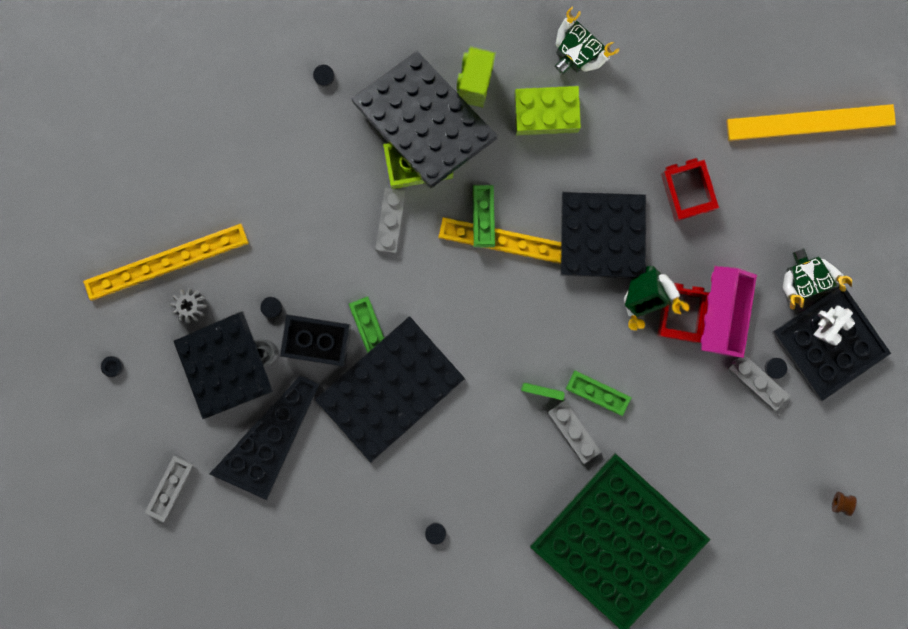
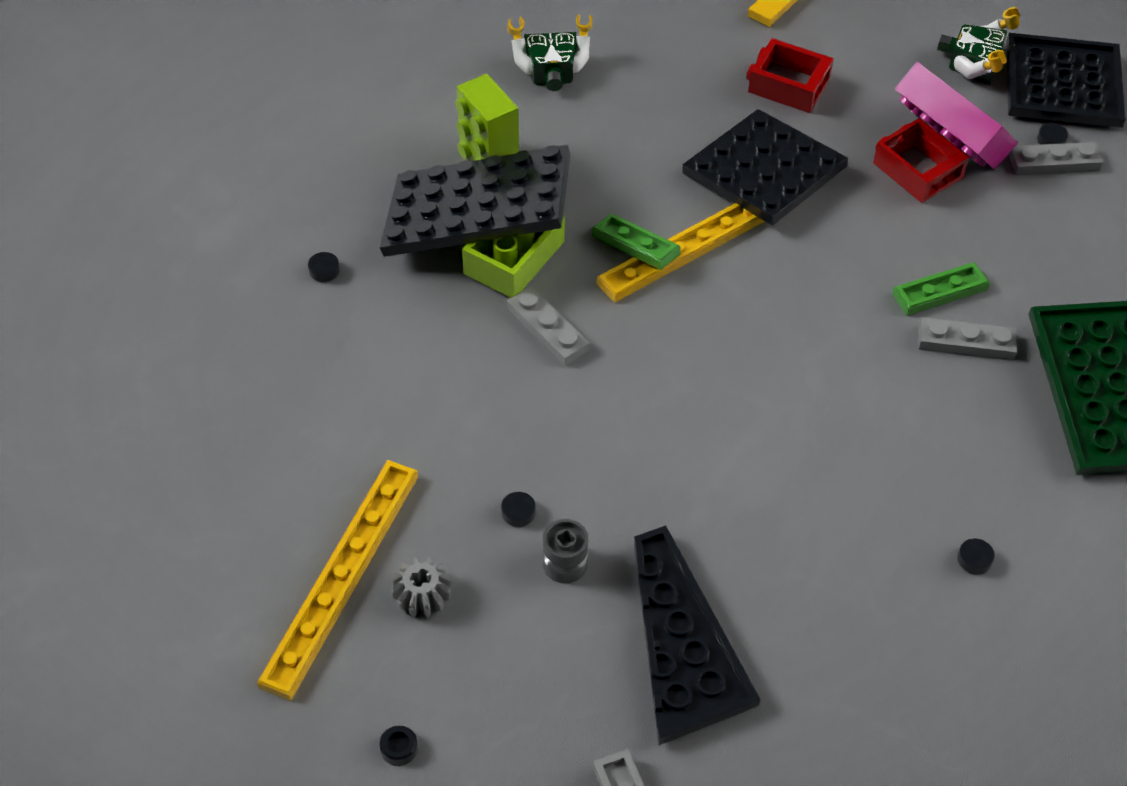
camera: 45 degrees left, 35 degrees down
(223, 365) = (537, 599): black plate -> none
(315, 340) = (610, 482): black brick -> none
(366, 322) = (650, 435): bright green tile -> none
(390, 389) = (744, 470): black plate -> none
(542, 391) = (891, 327): bright green tile -> none
(547, 110) = (585, 117): lime brick -> none
(650, 293) = (871, 160): dark green torso -> none
(832, 323) = (1048, 56): white hips -> none

